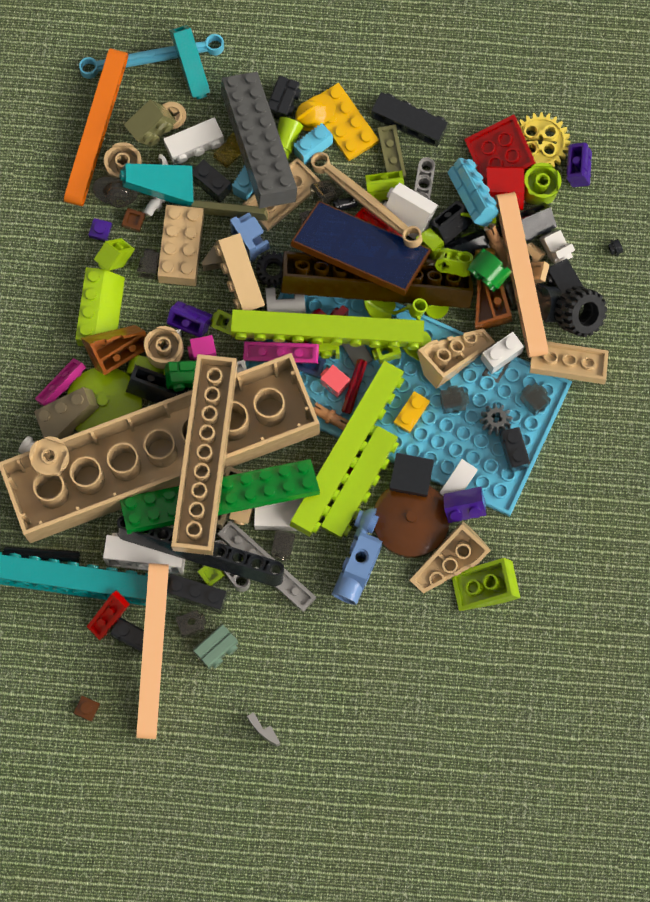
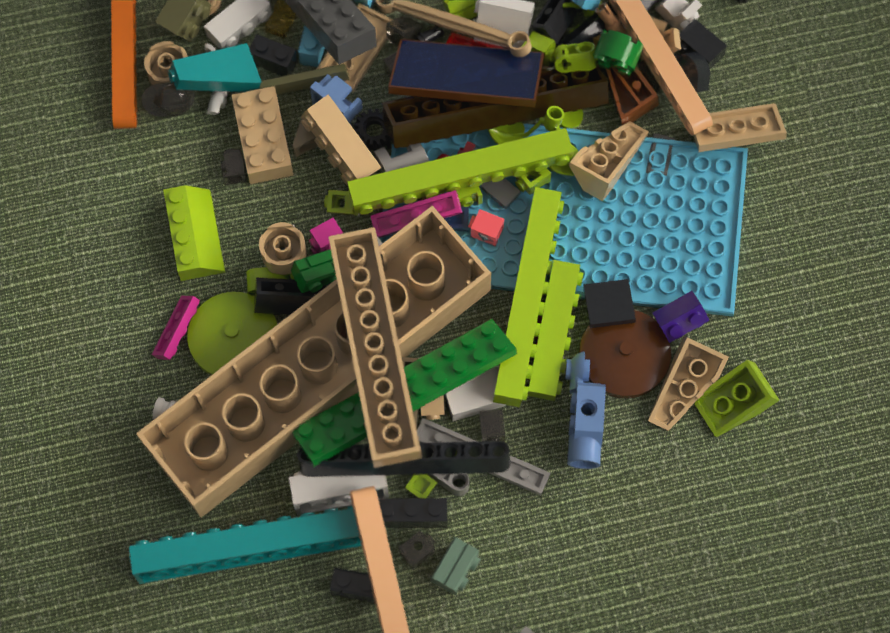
camera: 15 degrees left, 5 degrees down
(44, 554) = (223, 524): black axle -> none
(45, 446) = (185, 396): tan plate -> none
(66, 413) = (194, 357): dark tan wedge -> none
(100, 229) = (165, 147): dark purple plate -> none
(108, 615) = (320, 569): red plate -> none
(114, 254) = (190, 166): lime brick -> none
(114, 347) = (226, 267): dark orange wedge -> none
(133, 220) = (199, 124): reddish brown plate -> none
(189, 319) = (299, 211): dark purple brick -> none
(330, 416) = (501, 269): medium nougat pin -> none
(354, 386) = (510, 226): dark red axle -> none
(411, 412) = (584, 235): yellow plate -> none
(453, 399) = (626, 206): clear smoke brick -> none
(459, 478) = (664, 289): white slope -> none
(490, 415) = (673, 216): dark grey gear -> none
(502, 352) = (661, 139): white brick -> none
(514, 449) = (714, 239): black brick -> none
(535, 398) = (715, 177): clear smoke brick -> none
(592, 314) = (731, 68): black tyre -> none

